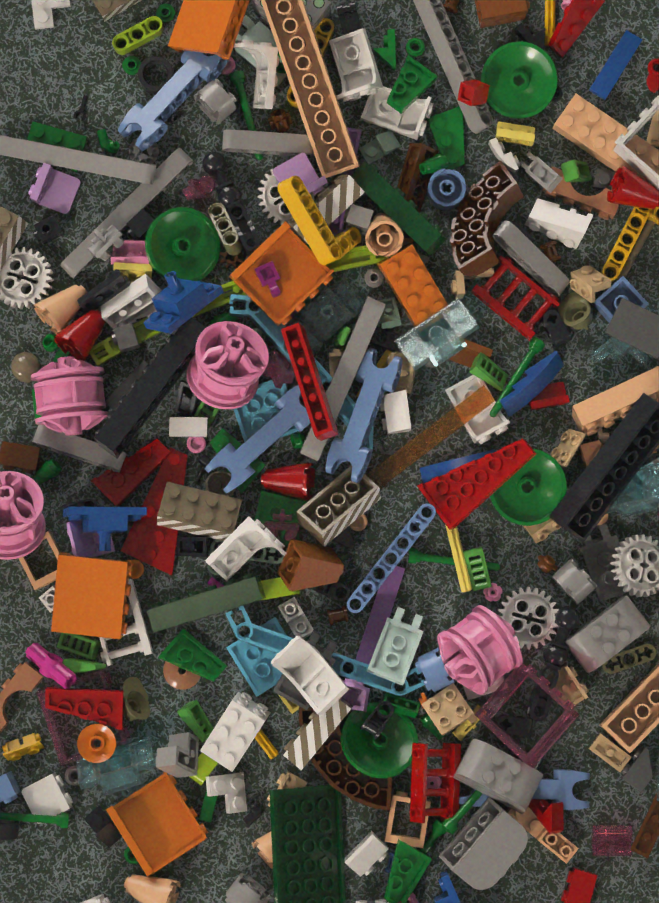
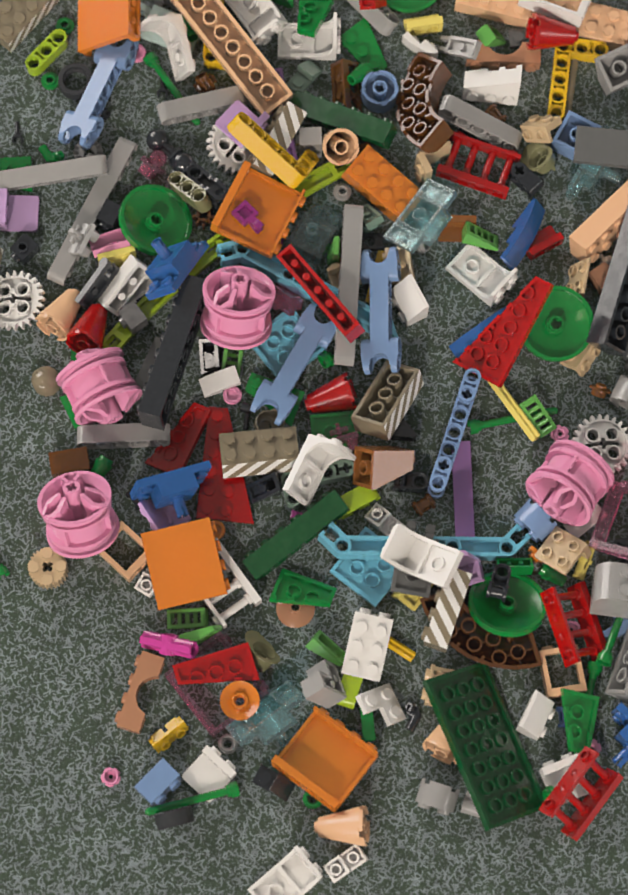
camera: 25 degrees left, 10 degrees down
(49, 343) = (62, 350): green plate -> none
(216, 101) = (140, 84): light grey brick -> none
(359, 524) = (412, 414): light nougat tile -> none
(396, 648) = (490, 513): light aqua tile -> none
(431, 437) = (450, 311): clear orange tile -> none
(535, 346) = (513, 201): green piece -> none

